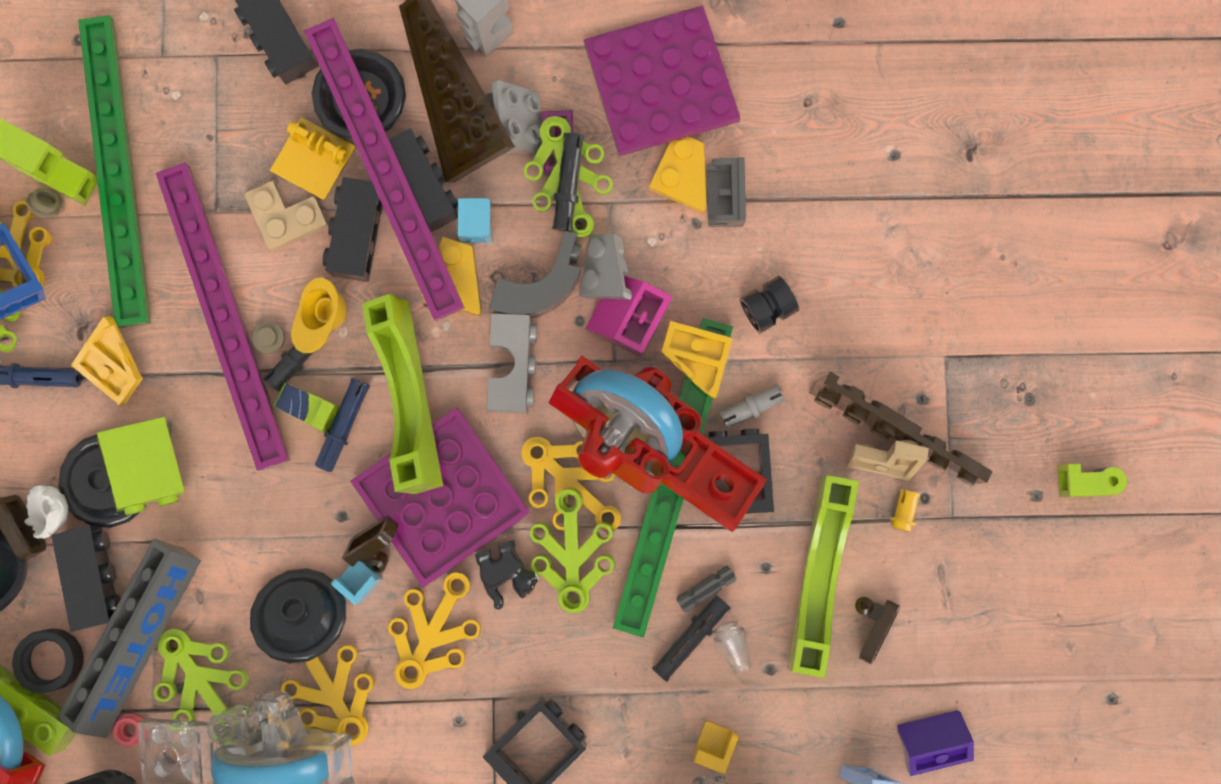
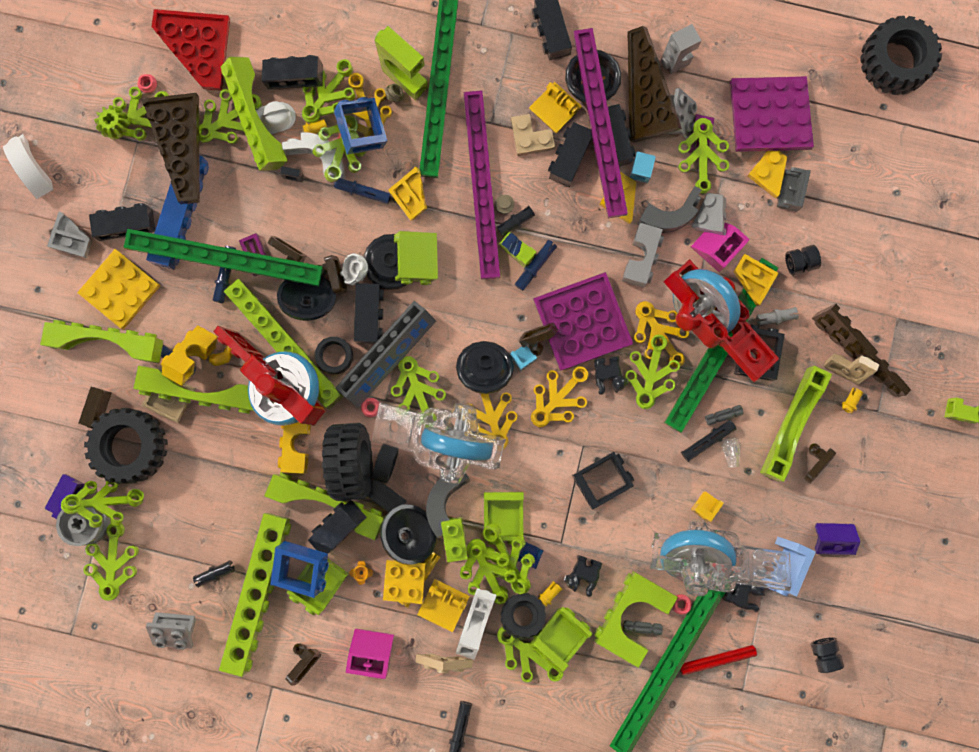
camera: 15 degrees right, 0 degrees up
(318, 315) = (538, 198): yellow piece -> none
(414, 450) = (578, 282): lime arch -> none
(568, 181) = (706, 152): black pin -> none

